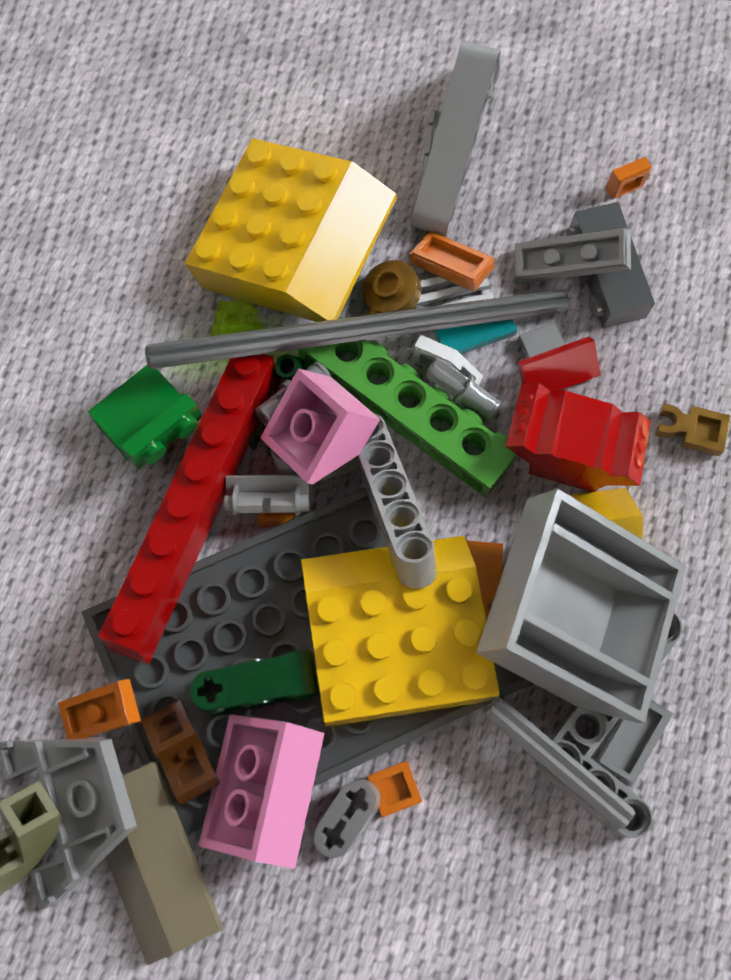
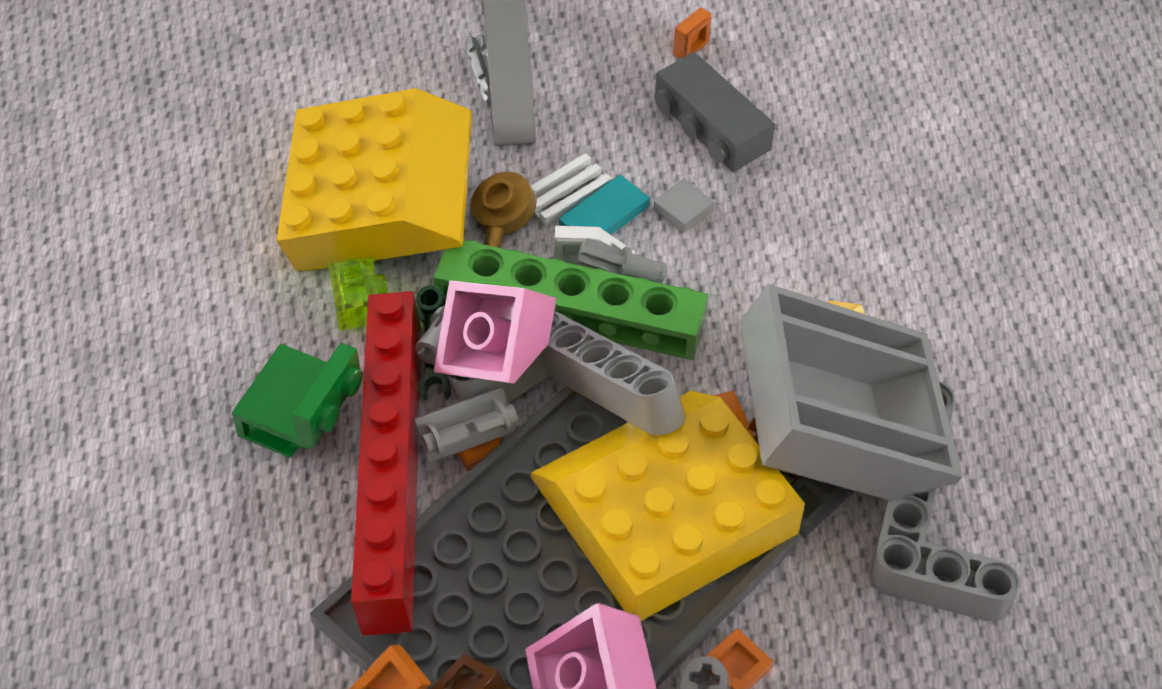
camera: 20 degrees left, 20 degrees down
(258, 683) = (539, 603): dark green piece -> none
(354, 329) = (480, 241): dark grey axle -> none
(452, 260) = (553, 157): orange tile -> none
(560, 764) = (898, 553): light grey axle -> none
(562, 365) = (709, 216): red tile -> none
(573, 255) = (673, 110): light grey tile -> none
(578, 439) = (749, 255): red slope -> none
(632, 744) = (960, 516): light grey tile -> none
(699, 428) = (873, 221): pearl gold plate -> none

